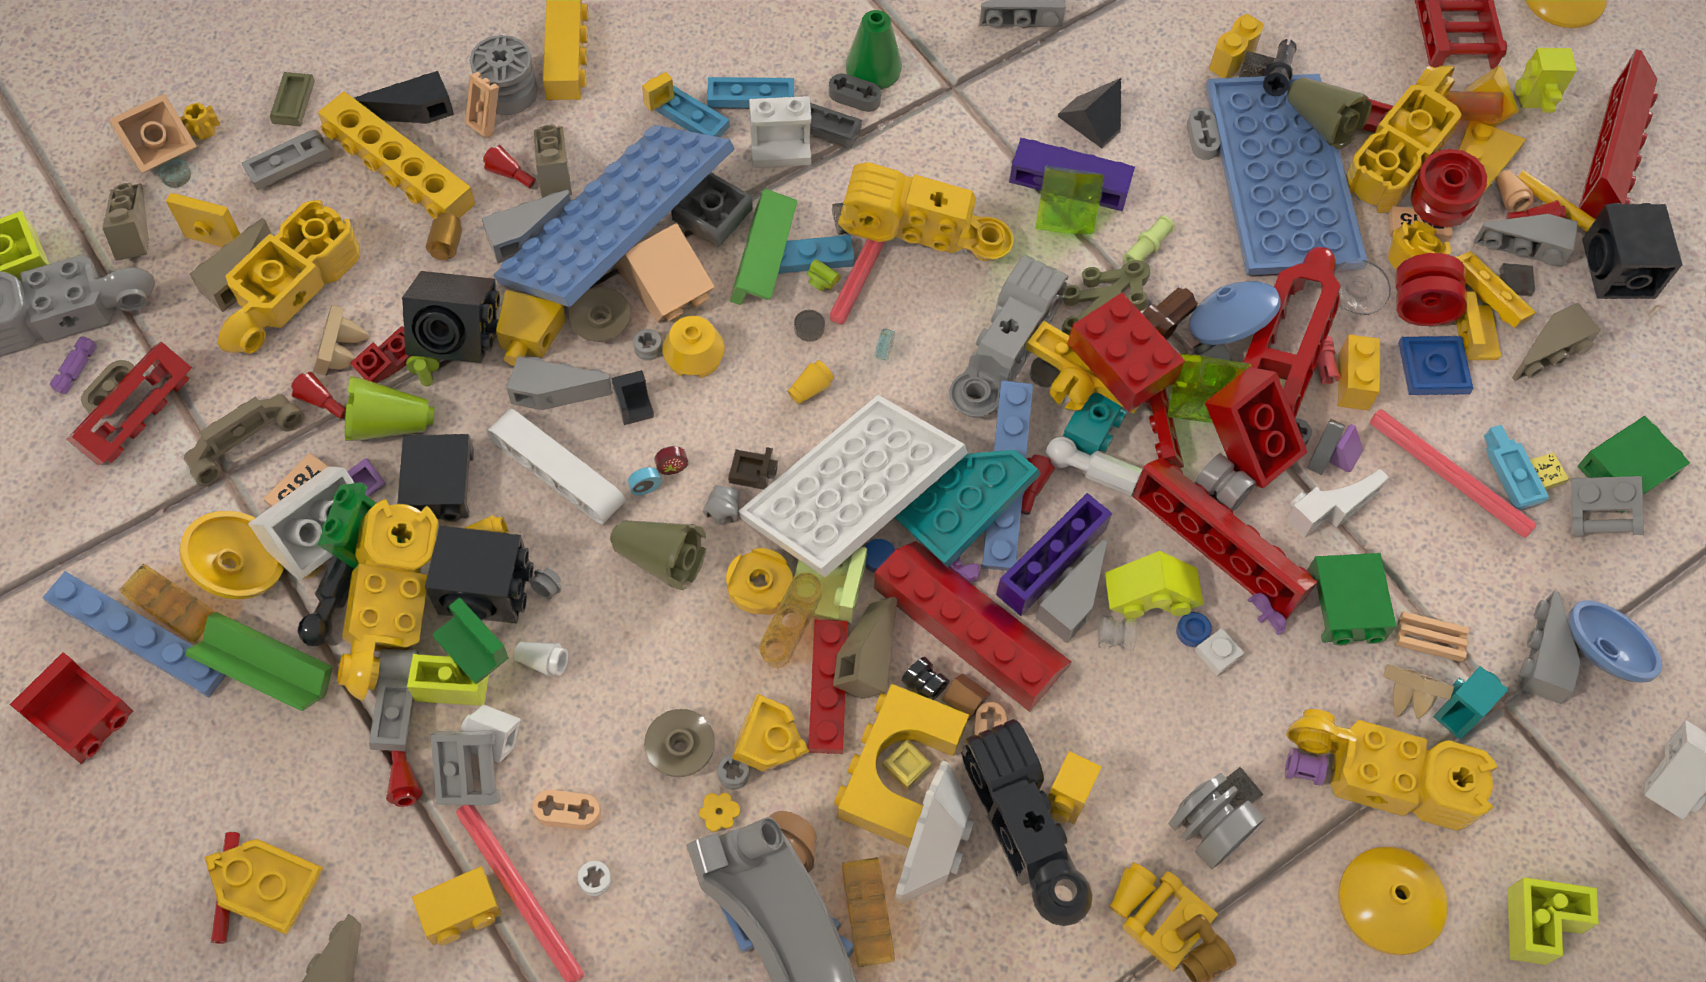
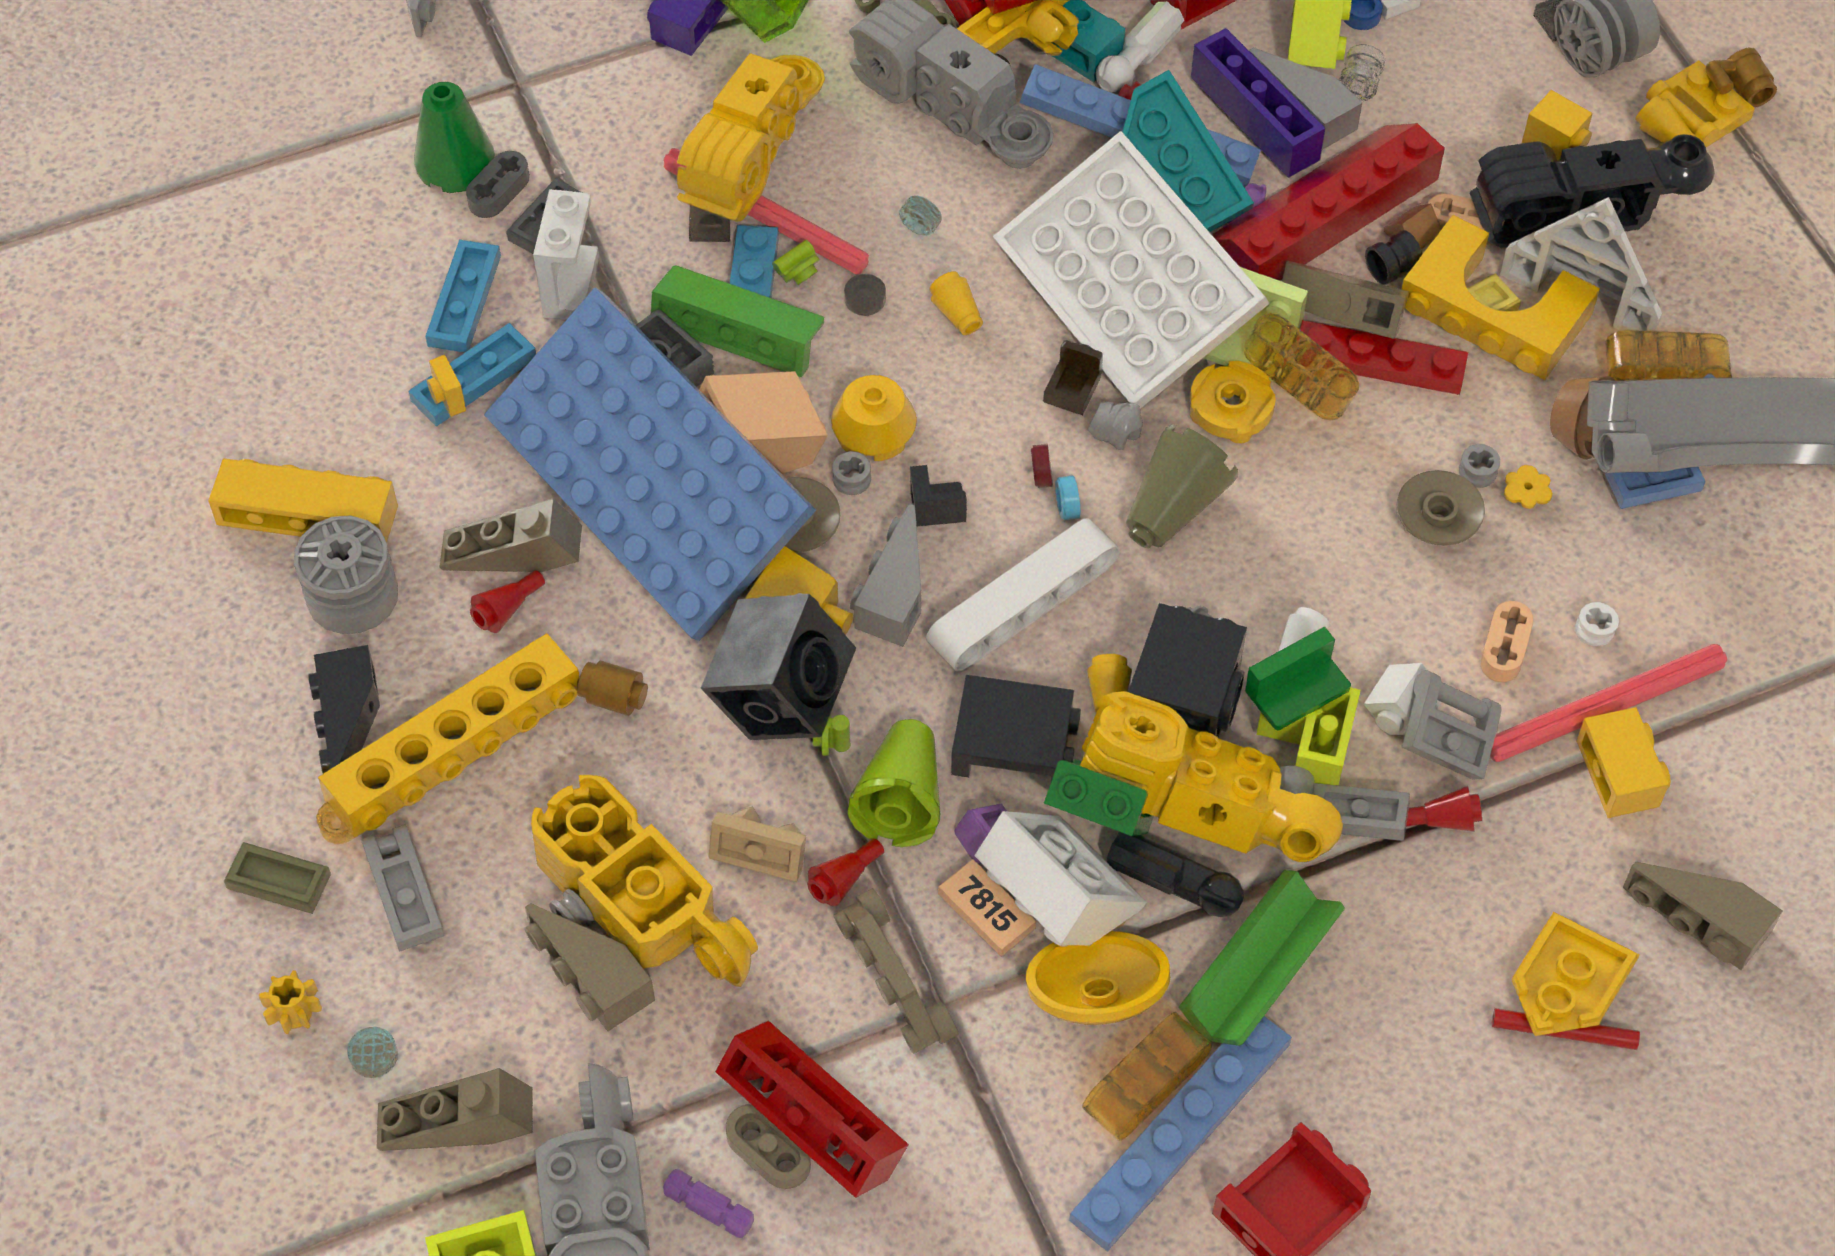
camera: 75 degrees left, 5 degrees down
(152, 133) = (305, 1066): light nougat slope -> none
(203, 220) = (511, 983): yellow plate -> none
(384, 360) = (795, 782): red slope -> none
(484, 108) = (386, 580): light nougat tile -> none
(516, 225) = (626, 590): light grey slope -> none
(768, 736) = (1441, 422): yellow plate -> none

